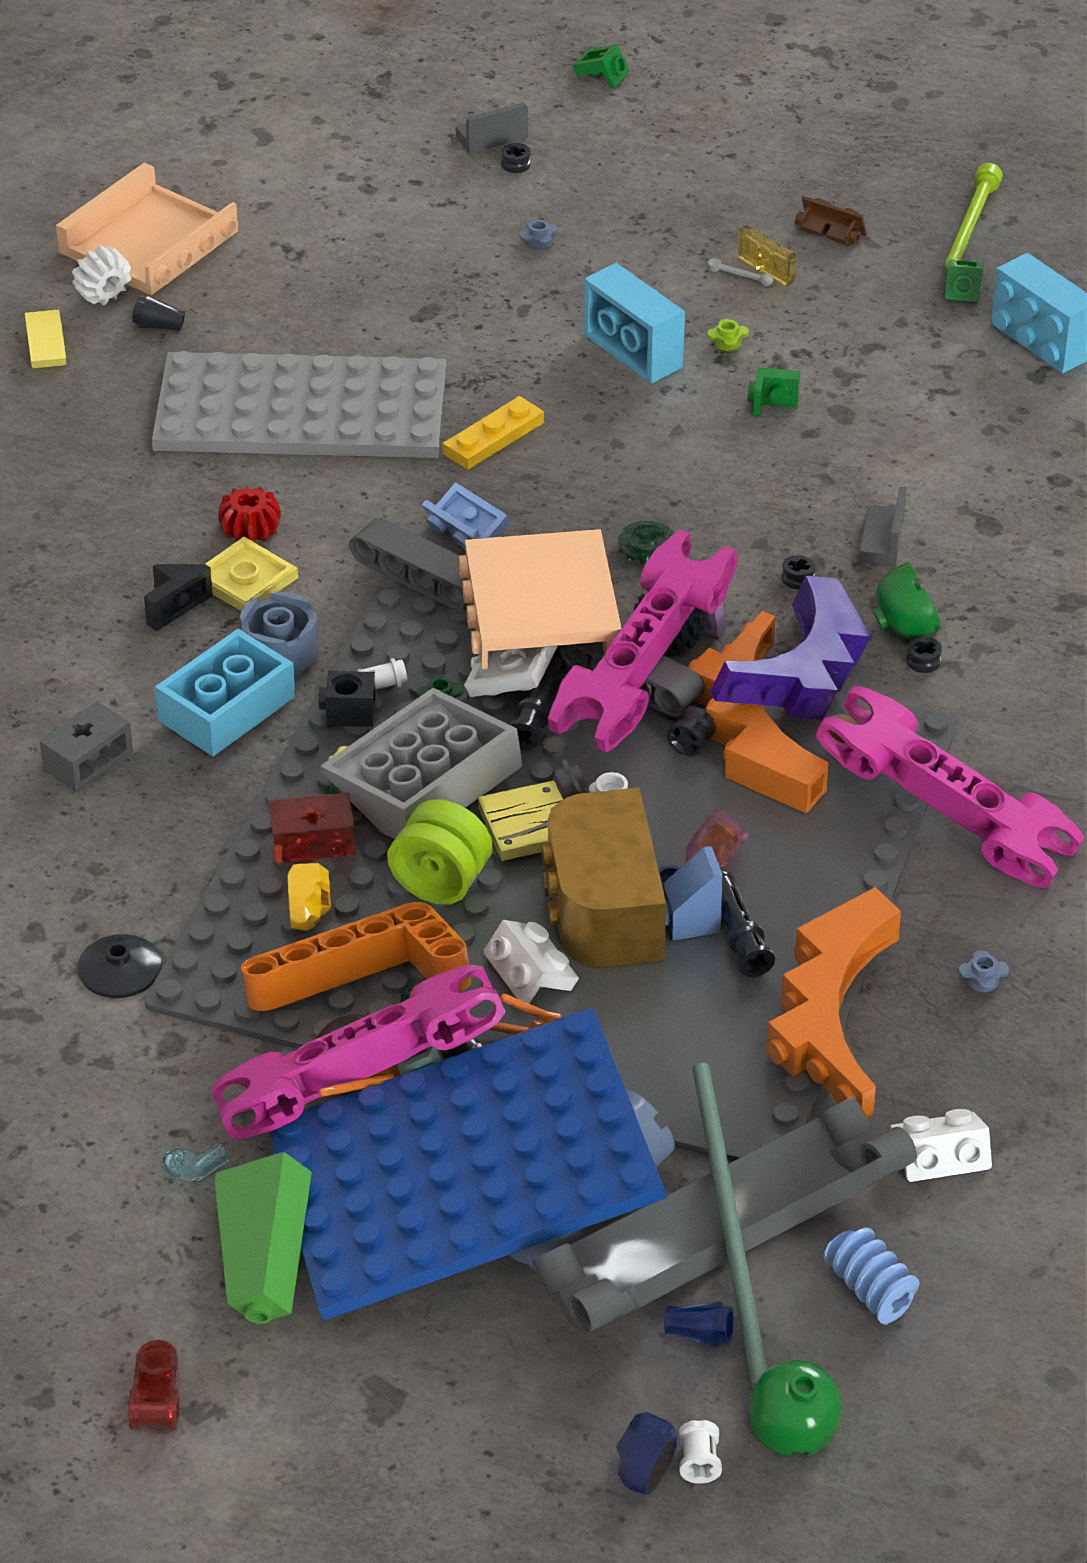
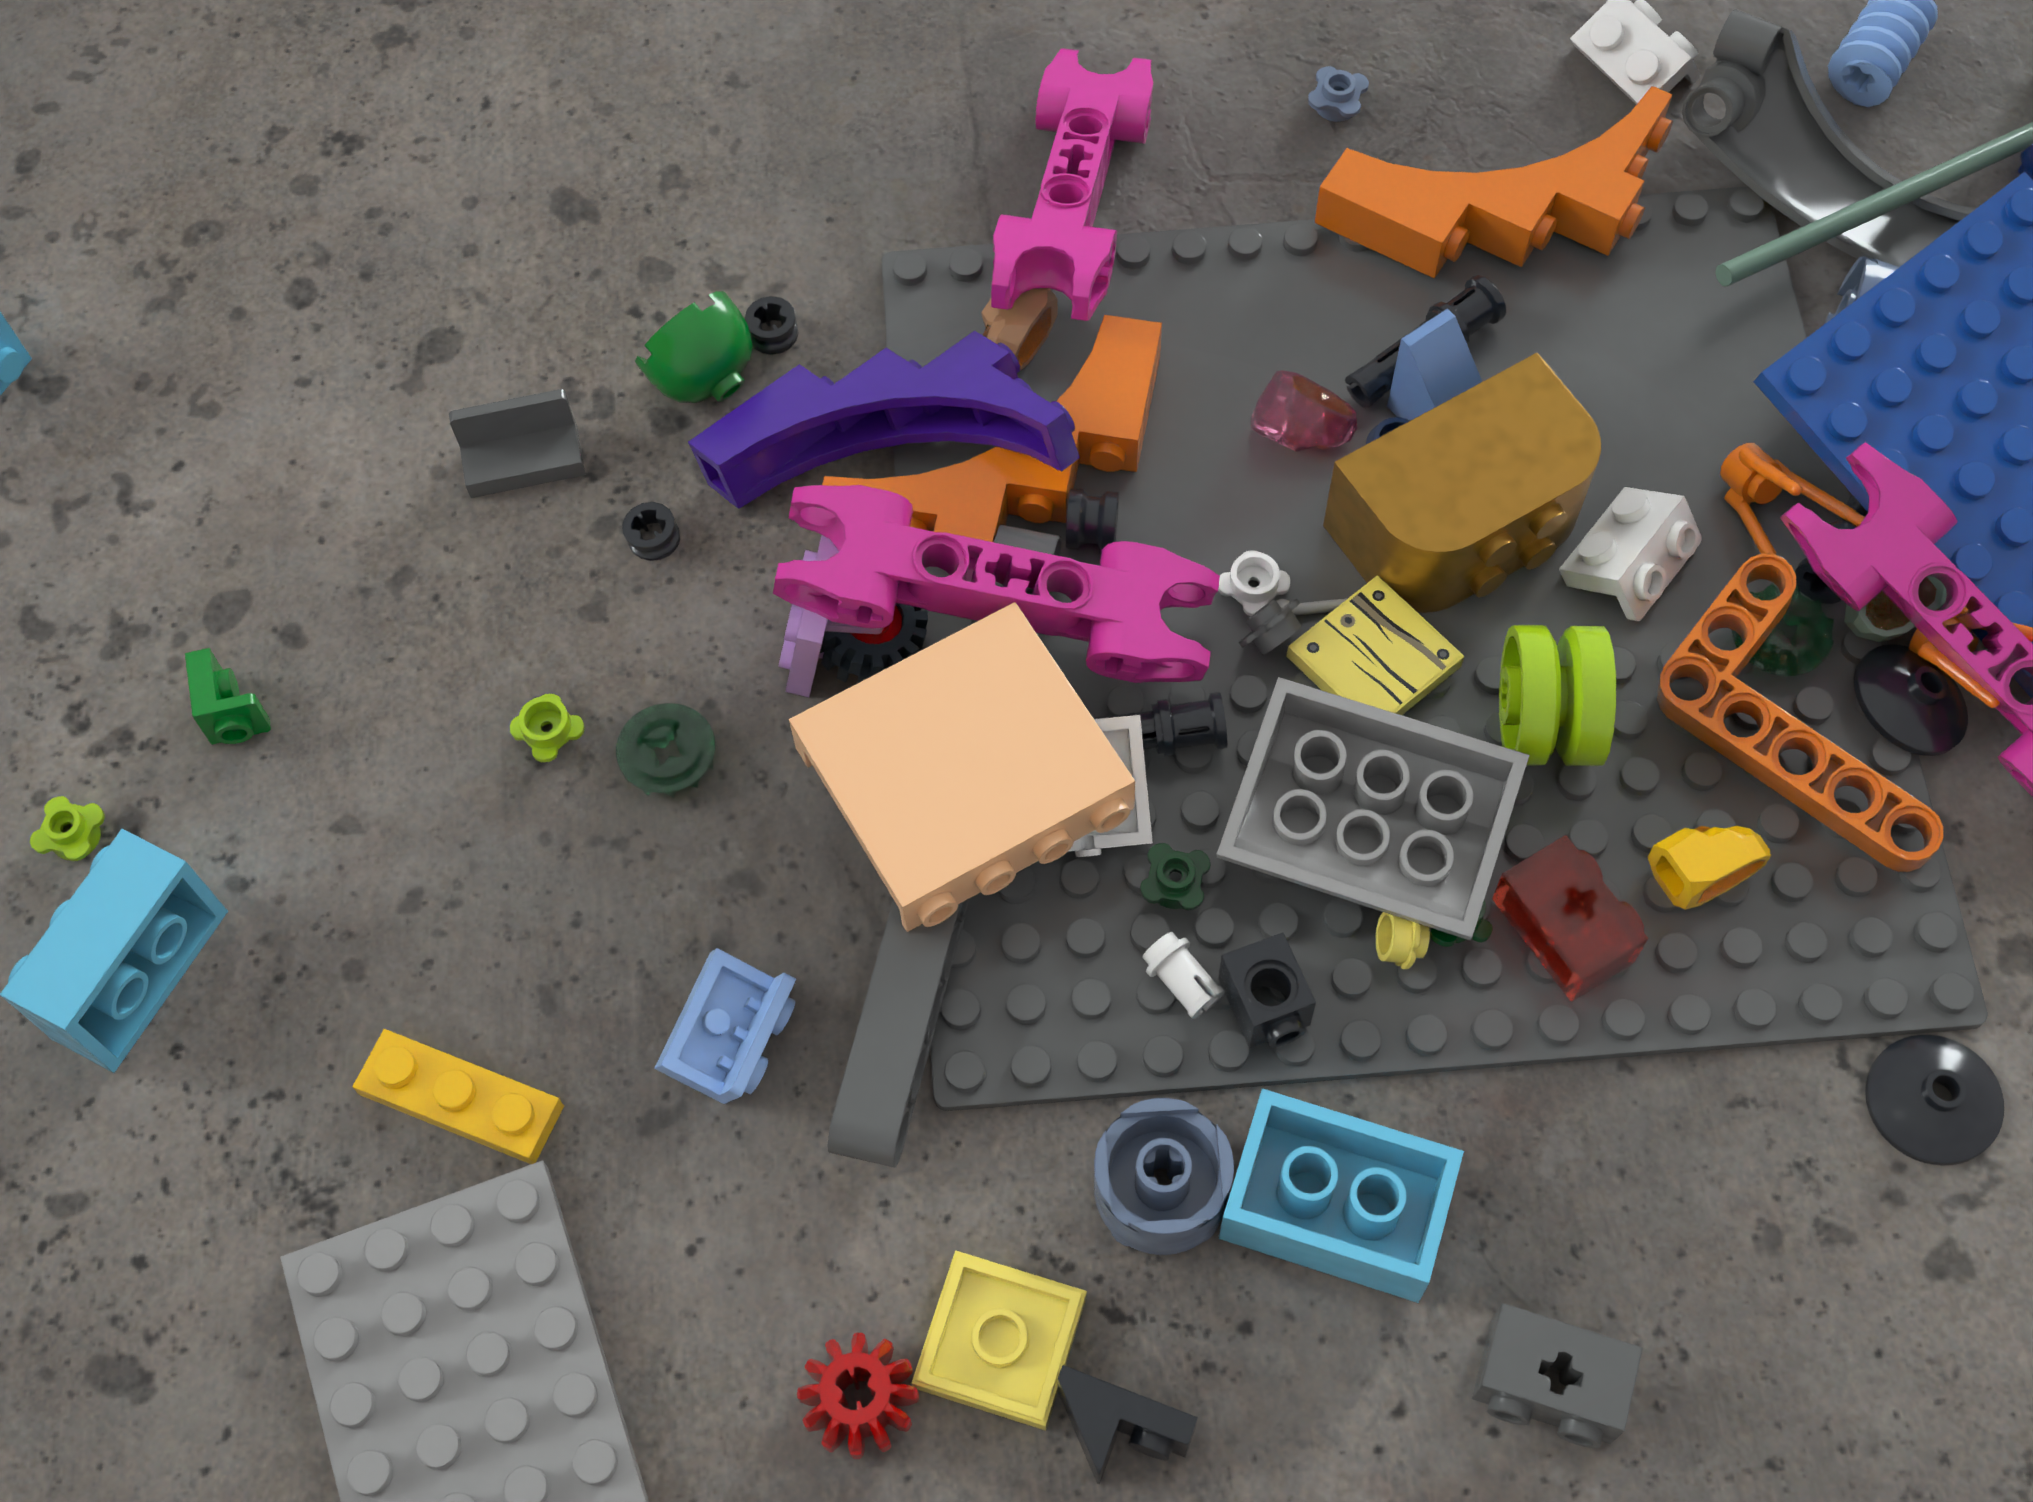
camera: 110 degrees left, 20 degrees up
(689, 502) = (544, 711): none -> lime plate

